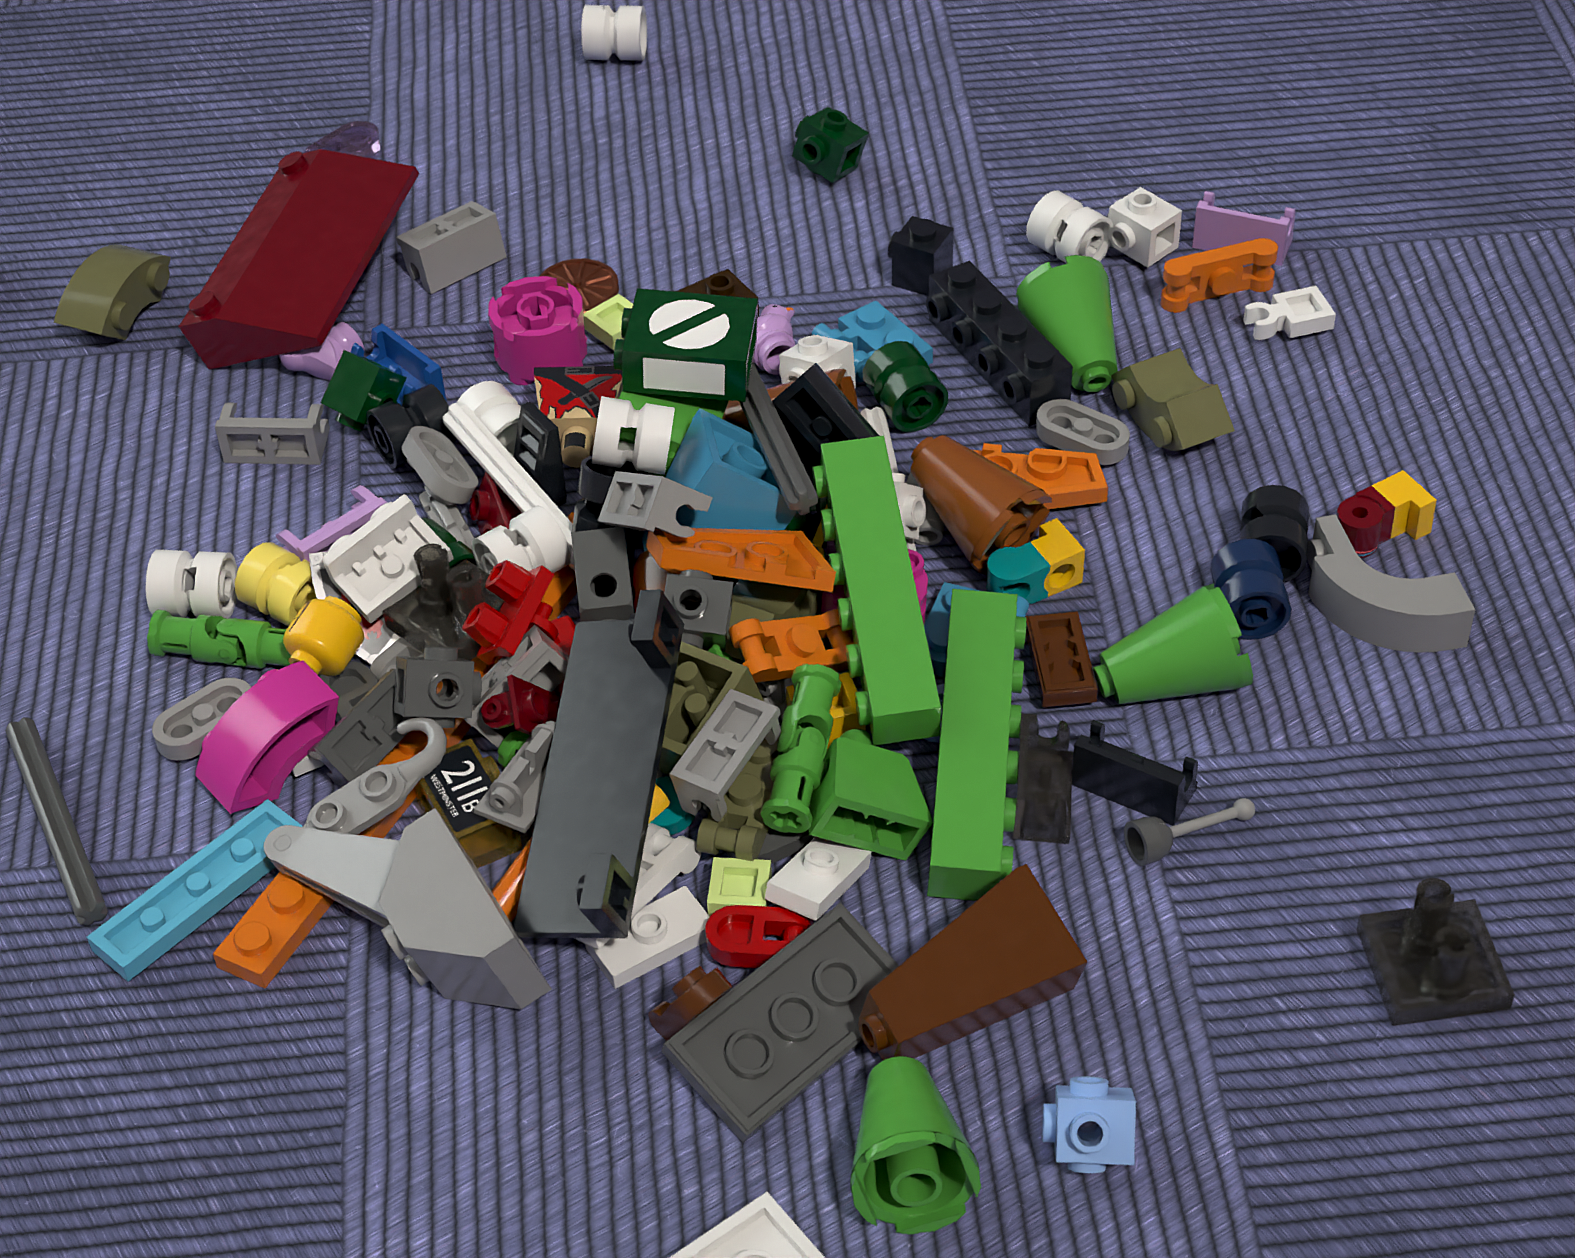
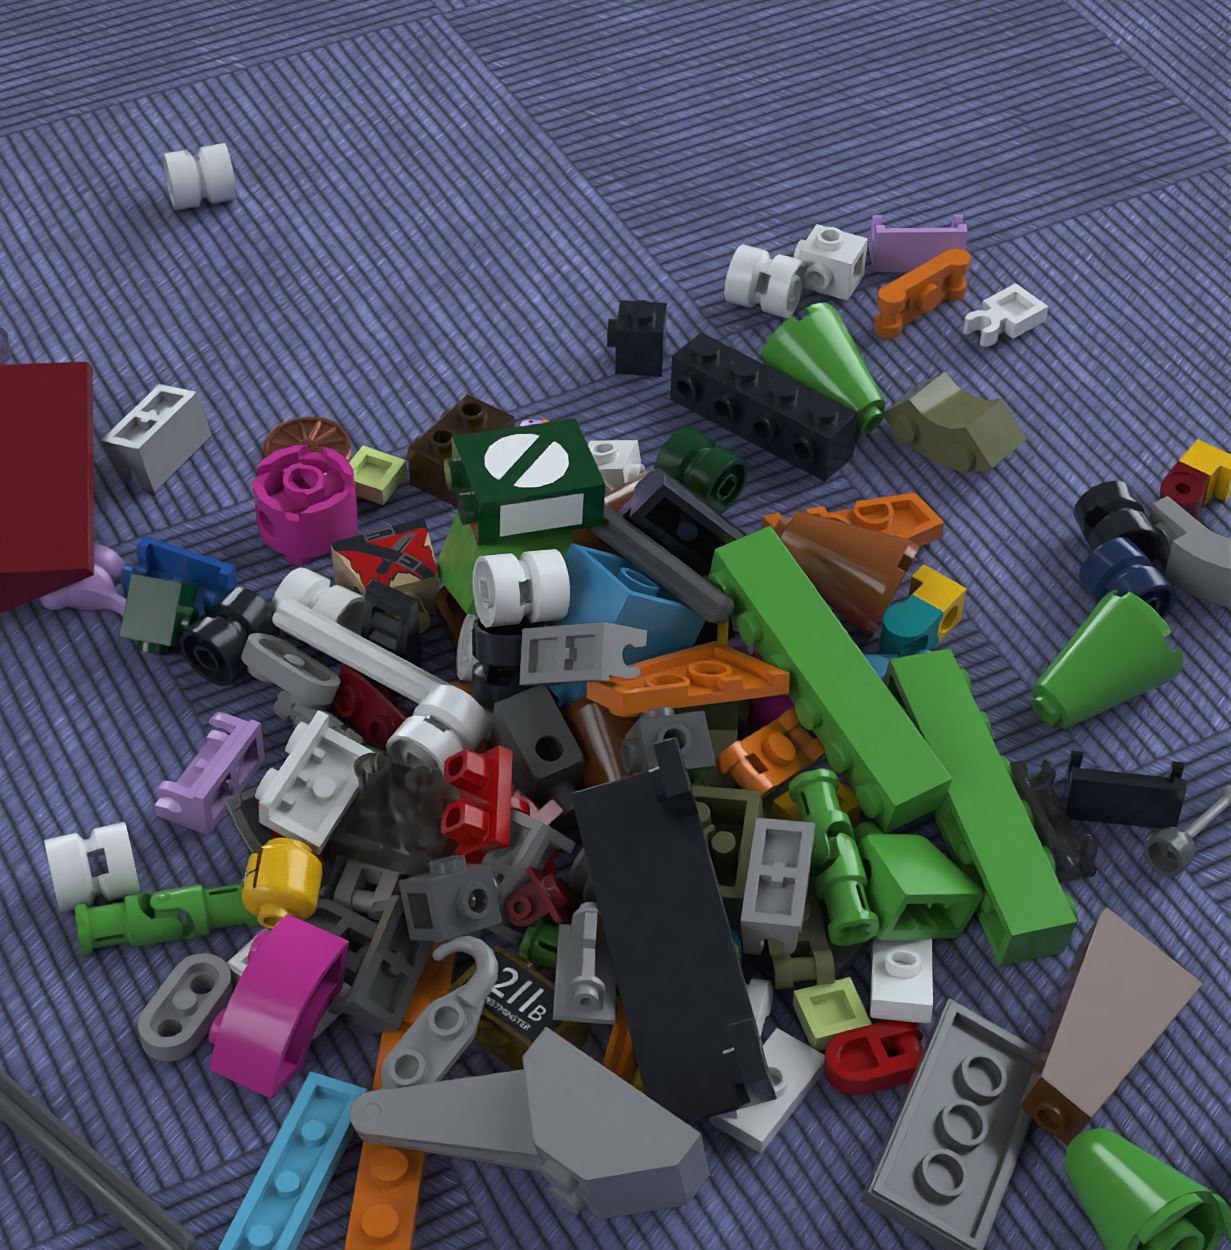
camera: 25 degrees left, 0 degrees up
(272, 438) = (80, 688): light grey hinge -> none
(274, 582) = (187, 840): light yellow wheel -> none
(694, 995) = (862, 1143): reddish brown plate -> none
(829, 144) = (485, 245): dark green brick -> none
(871, 329) = (633, 420): dark azure plate -> none
(1060, 659) = (1008, 708): reddish brown plate -> none
(1082, 429) = (884, 473): light grey plate -> none

